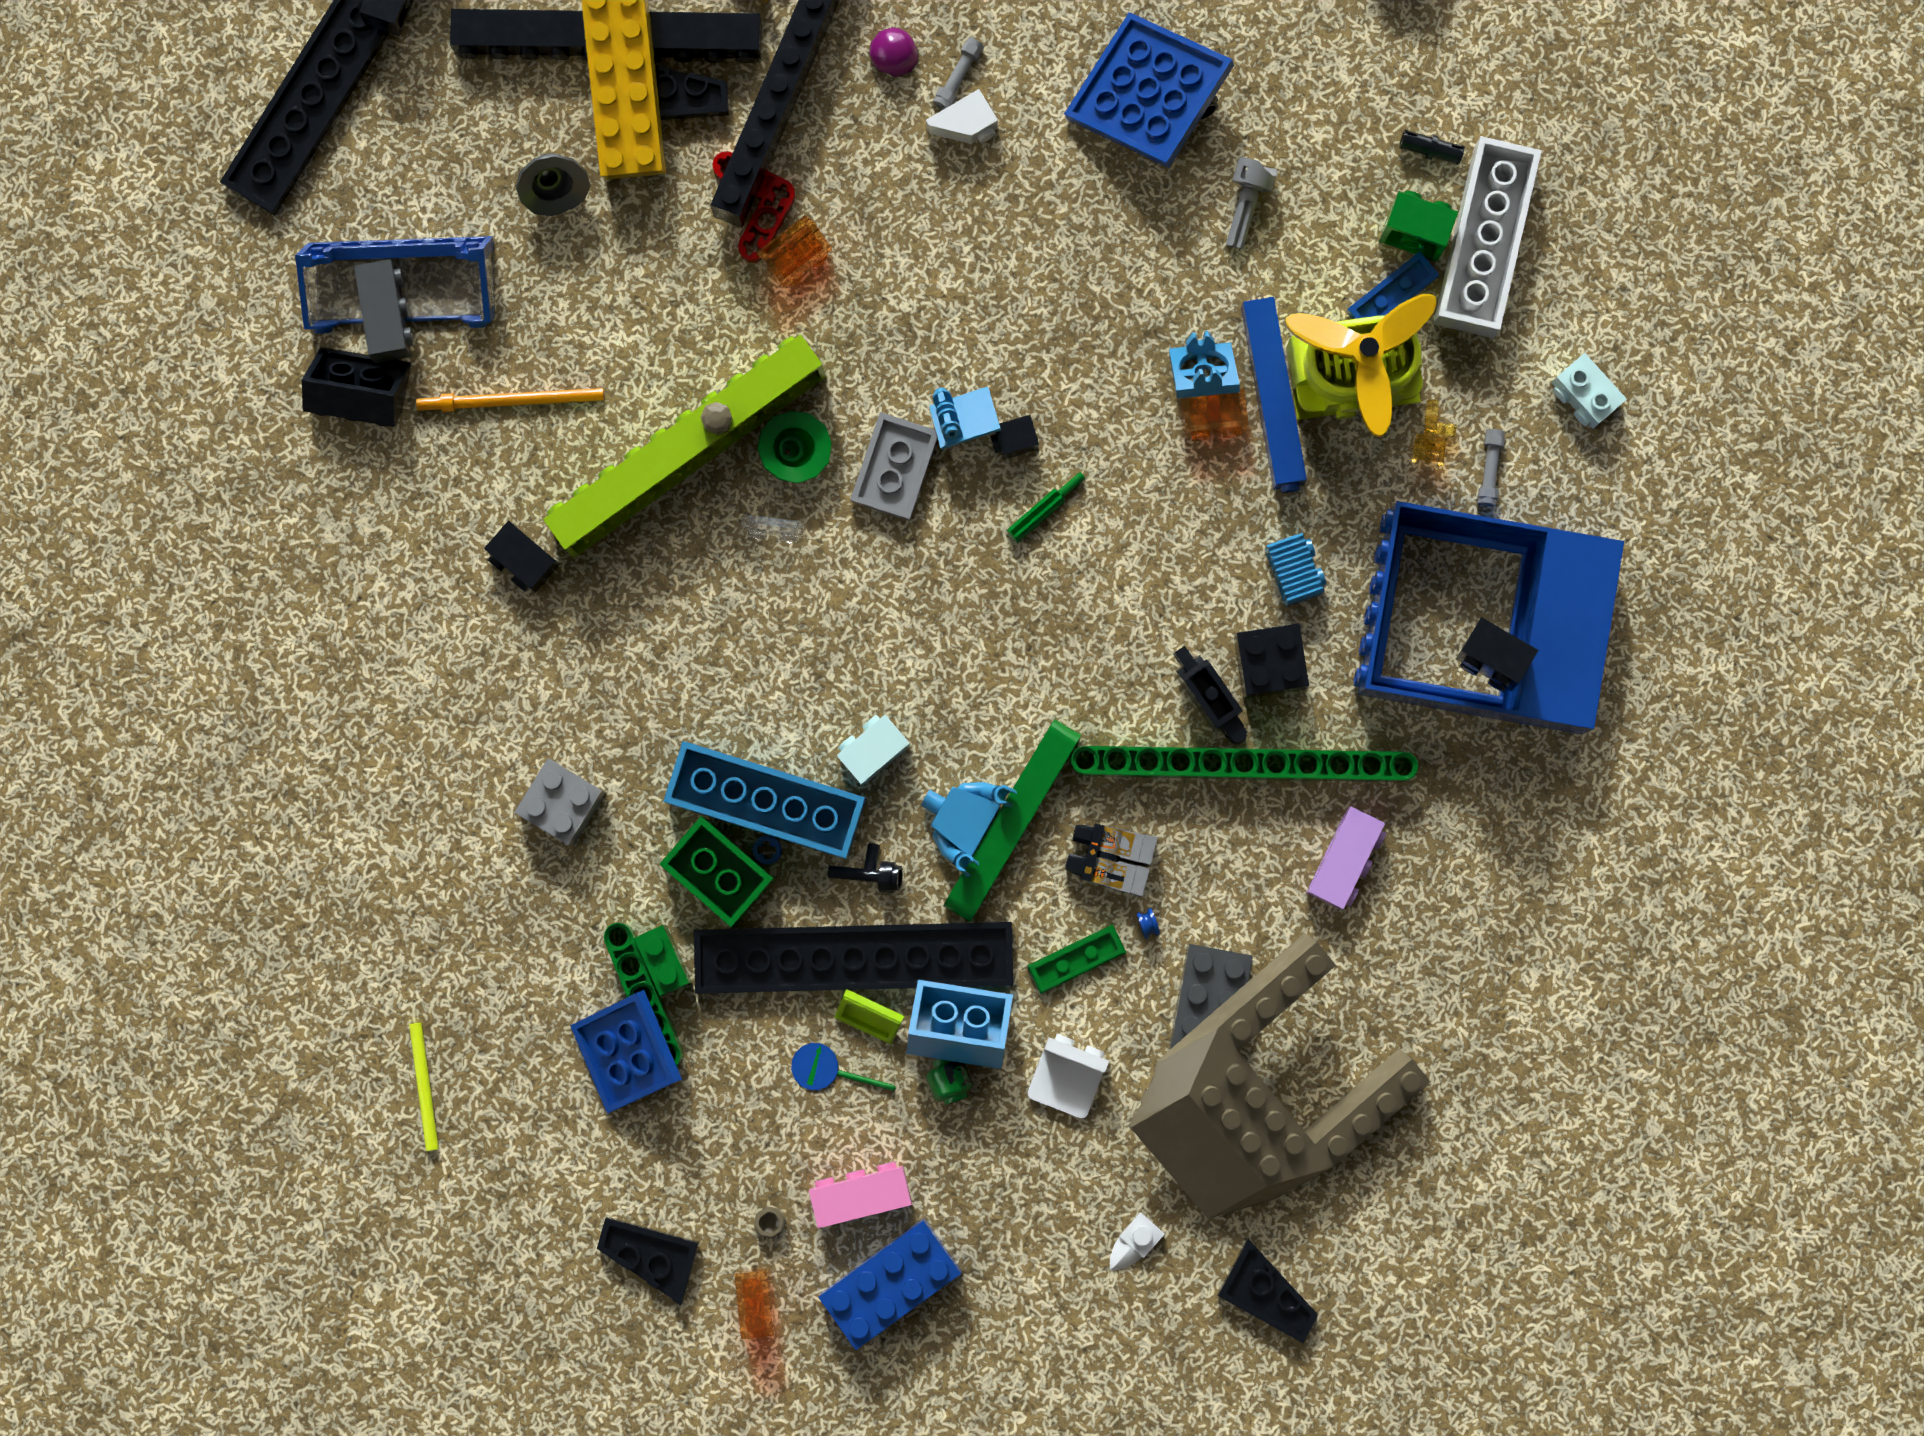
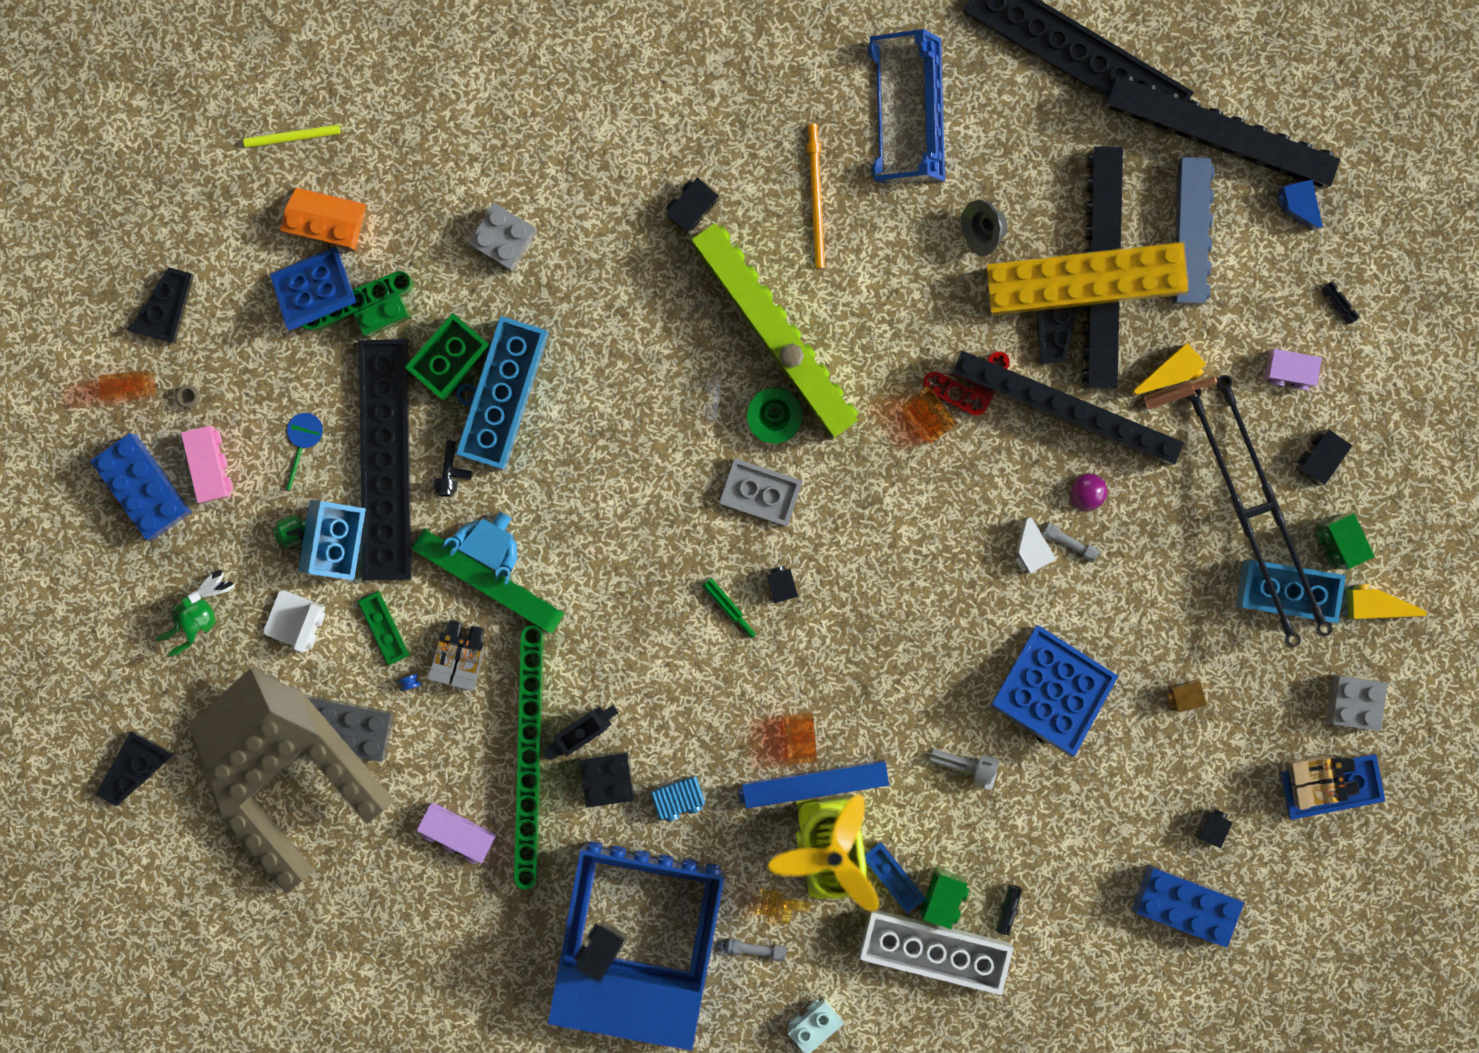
camera: 85 degrees right, 5 degrees up
(355, 387) = (826, 77): black slope -> none
(384, 311) = (883, 98): dark grey brick -> none
(534, 1041) = (323, 218): none -> orange slope
(869, 1016) = (340, 471): lime tile -> none
(872, 749) = (541, 475): light aqua brick -> none
(963, 416) = (798, 545): hinge -> none
(1056, 1206) = (195, 612): none -> green hair
(1134, 1242) = (172, 670): white plate -> none
(1202, 385) = (819, 730): dark azure piece -> none

